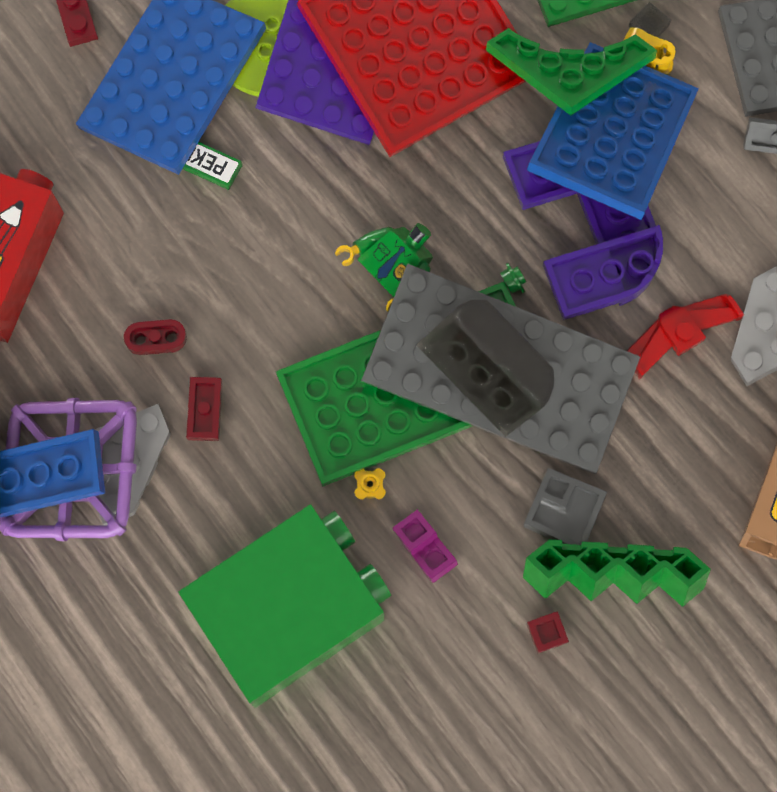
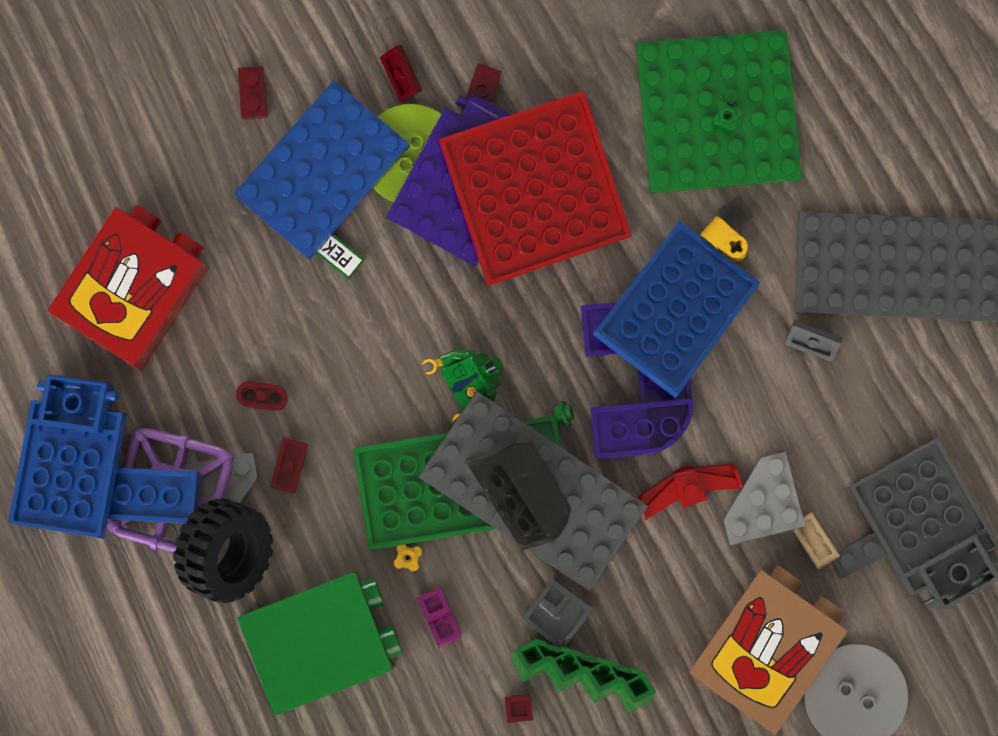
camera: 10 degrees right, 10 degrees up
(114, 522) = (202, 540): none -> black tyre
(570, 76) = (652, 255): green plate -> none

